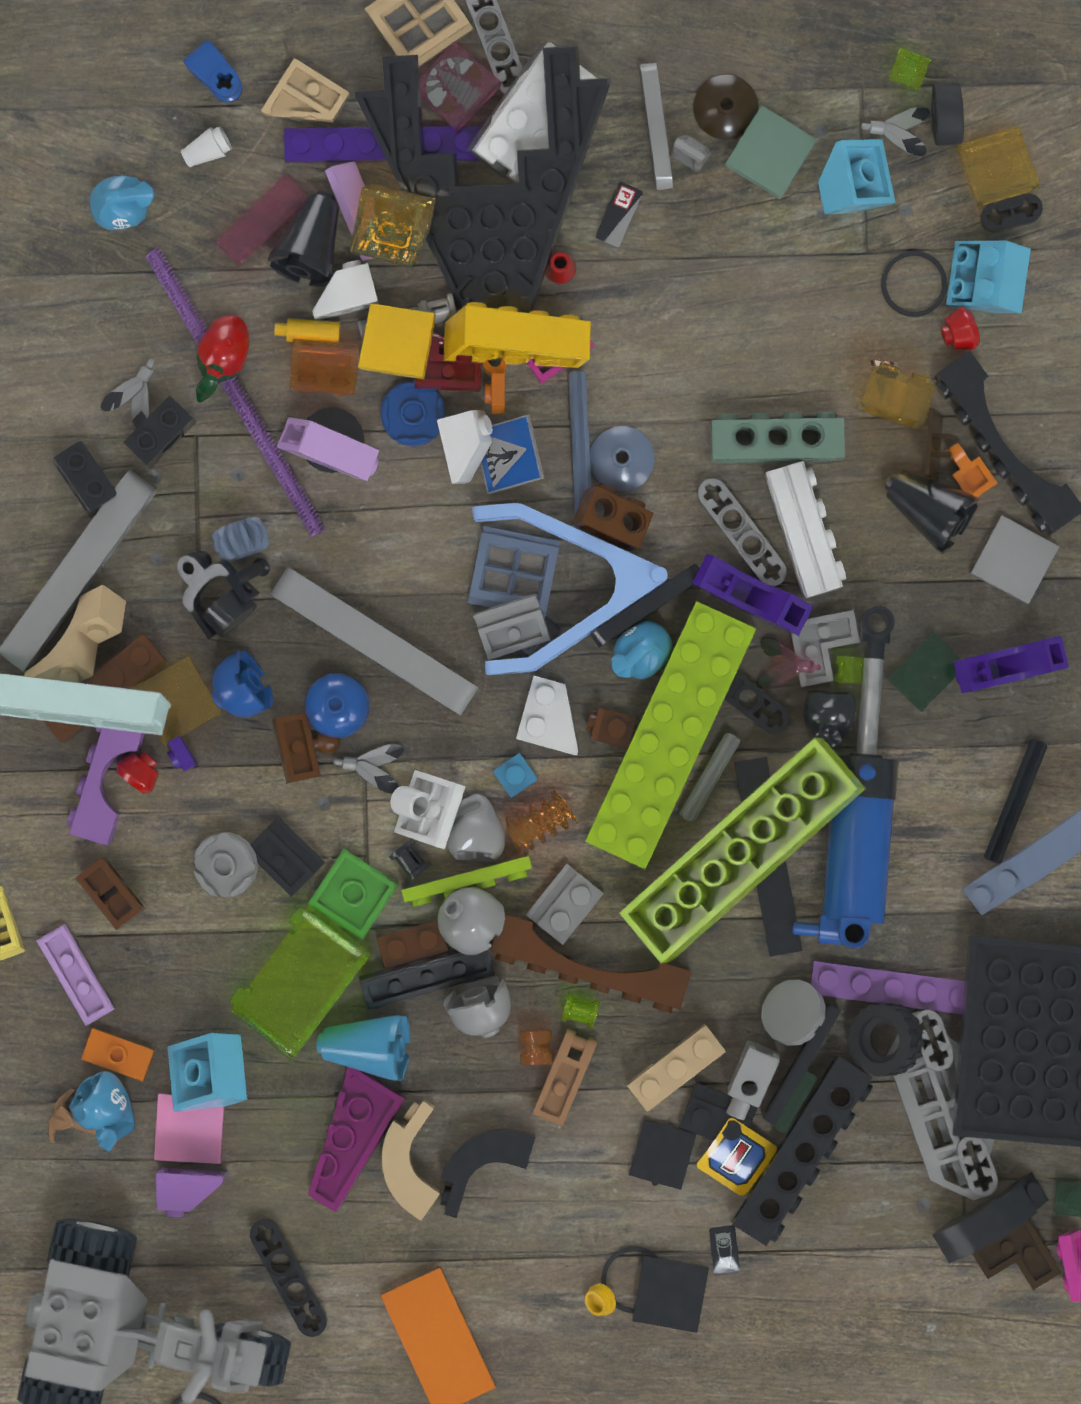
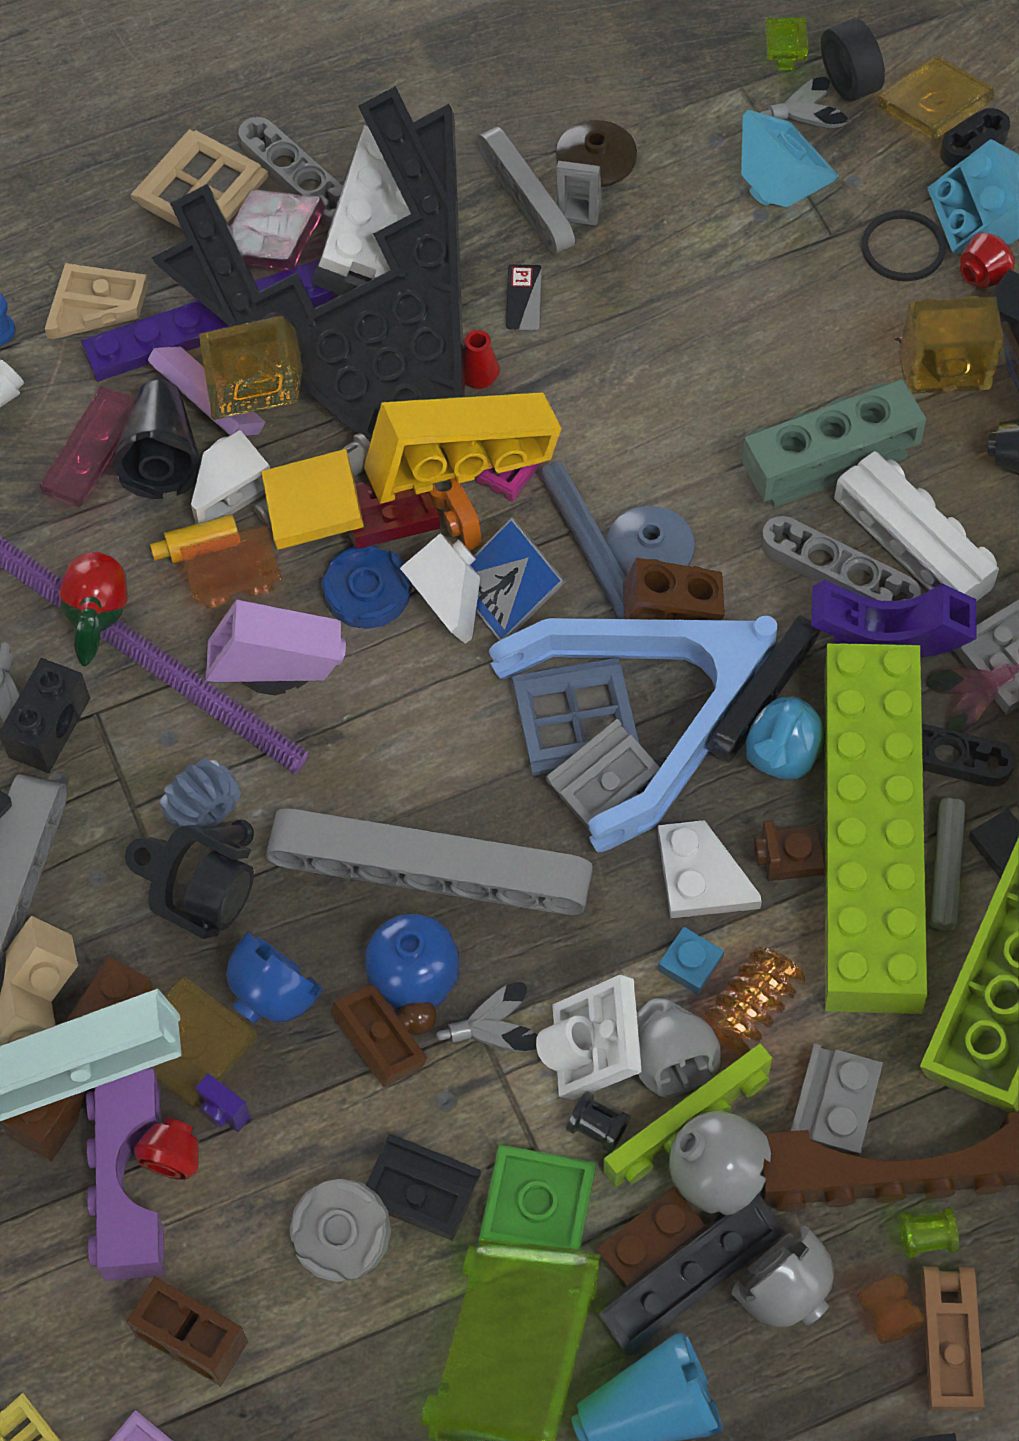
camera: 15 degrees left, 25 degrees down
(770, 152) = (671, 171): sand green slope -> none

